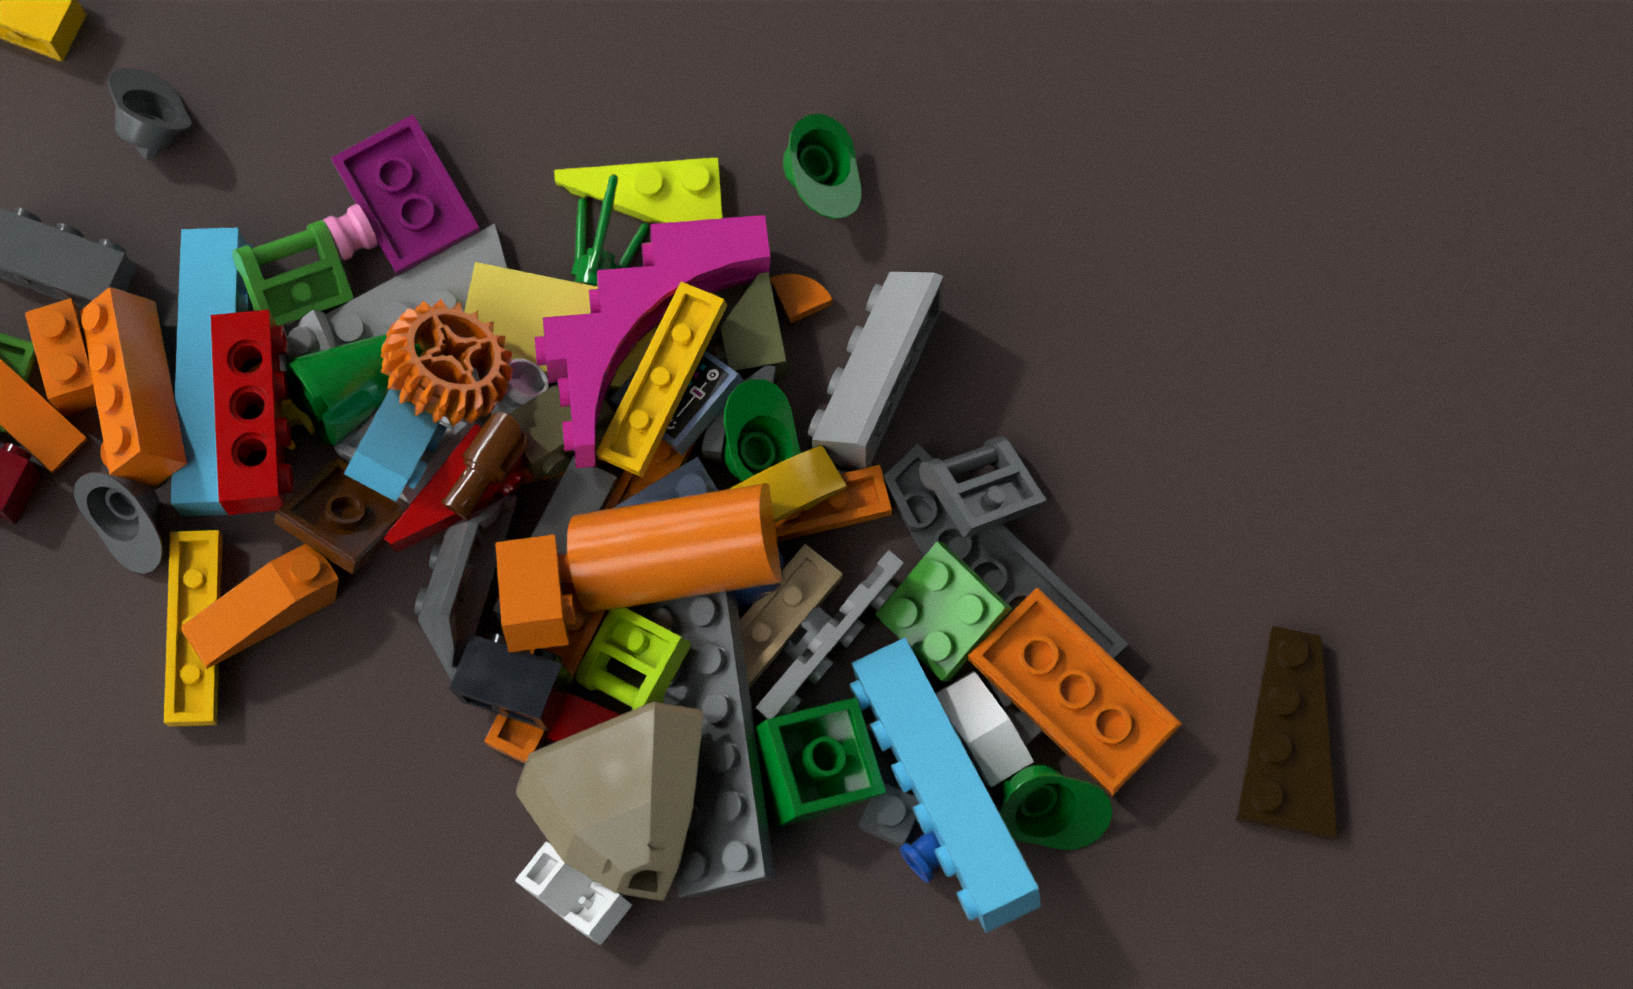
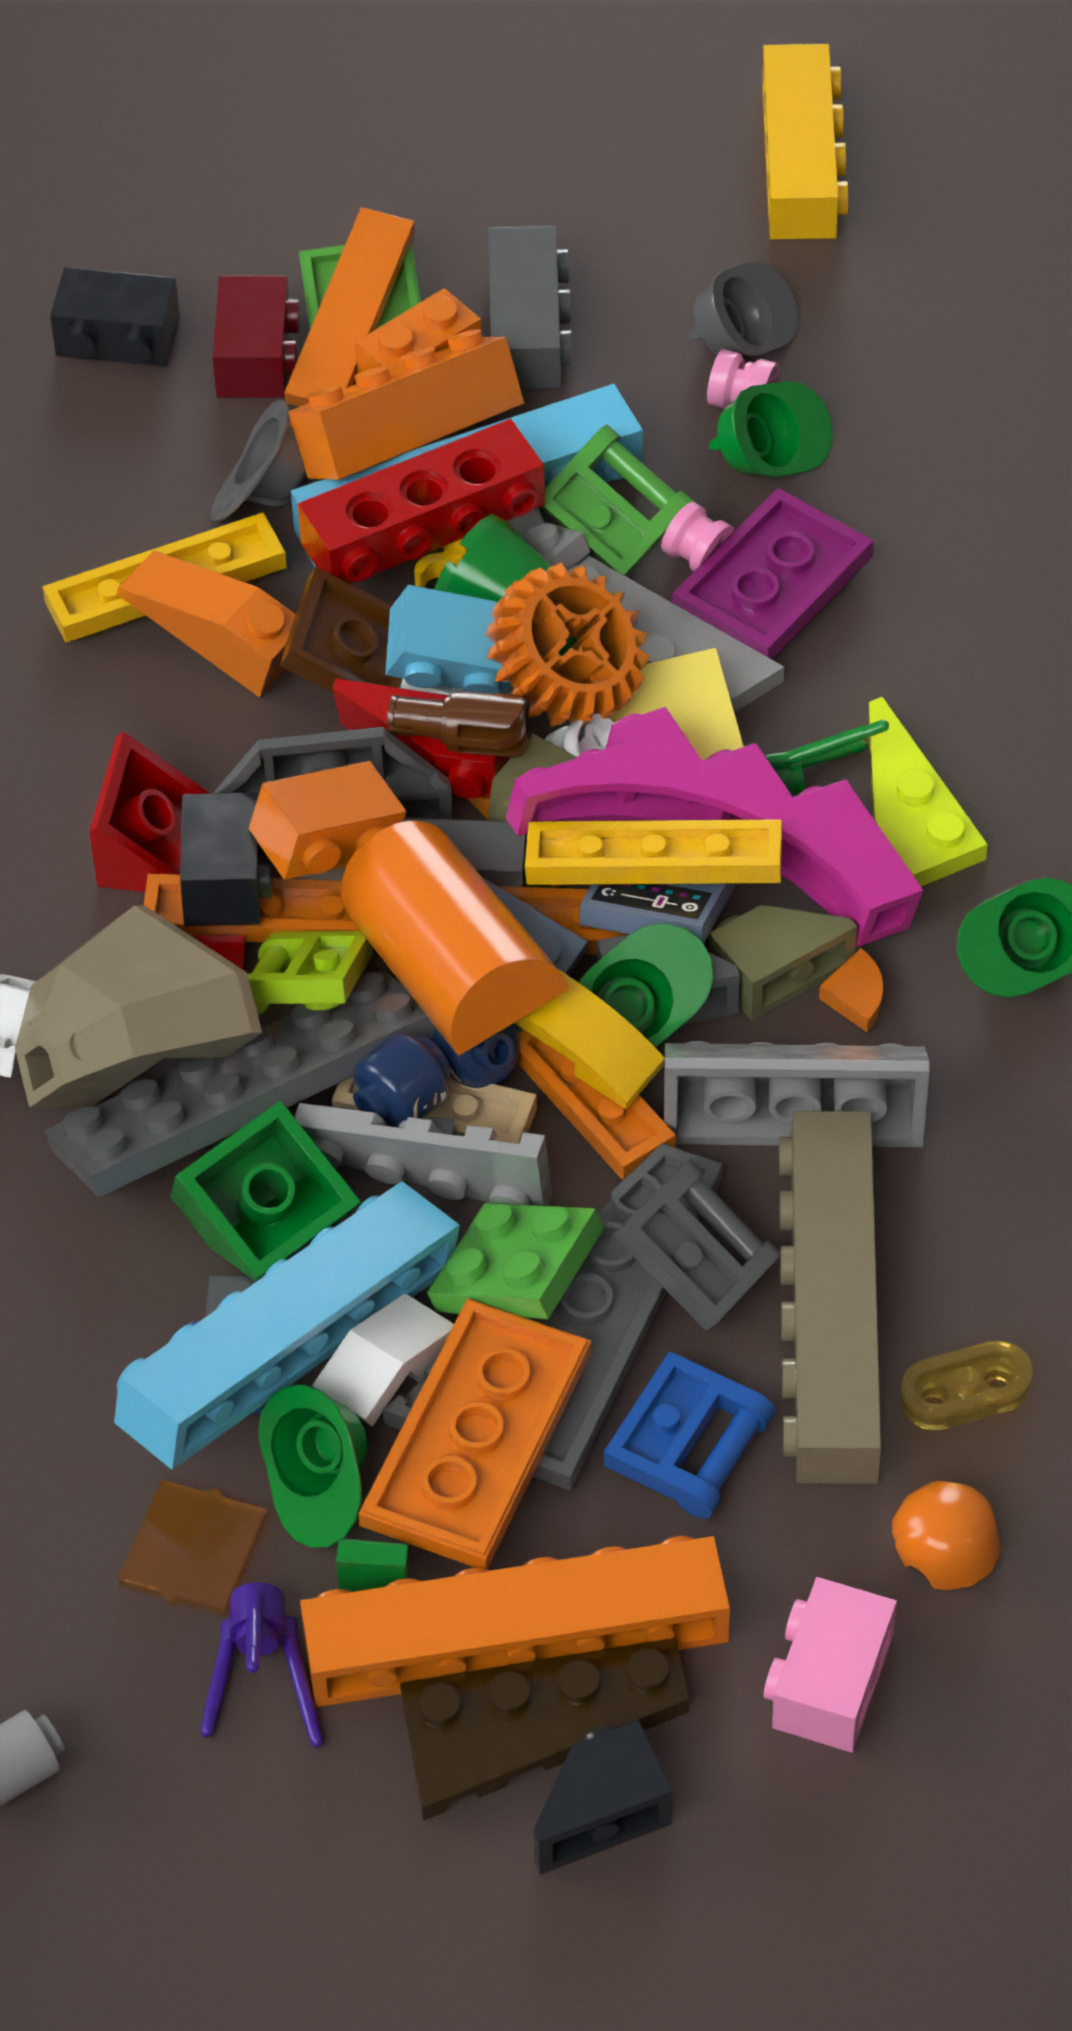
camera: 65 degrees right, 20 degrees down
(213, 139) = (733, 375): none -> bright pink wheel
(274, 139) = (774, 430): none -> green piece
(433, 723) = (138, 817): none -> red slope
(770, 630) = (402, 1079): none -> dark blue head
(1050, 416) = (833, 1298): none -> dark tan brick
(1072, 917) = (192, 1547): none -> clear orange piece
(1106, 563) = (670, 1422): none -> blue plate
(1146, 800) = (370, 1564): none -> green tile
(1152, 365) = (962, 1384): none -> clear yellow plate
(1158, 891) = (256, 1628): none -> dark purple plant
(1222, 724) = (485, 1619): none -> orange brick
(1257, 424) = (947, 1534): none -> orange hair
(1332, 535) = (832, 1663): none -> bright pink brick
(1374, 719) = (602, 1797): none -> black slope

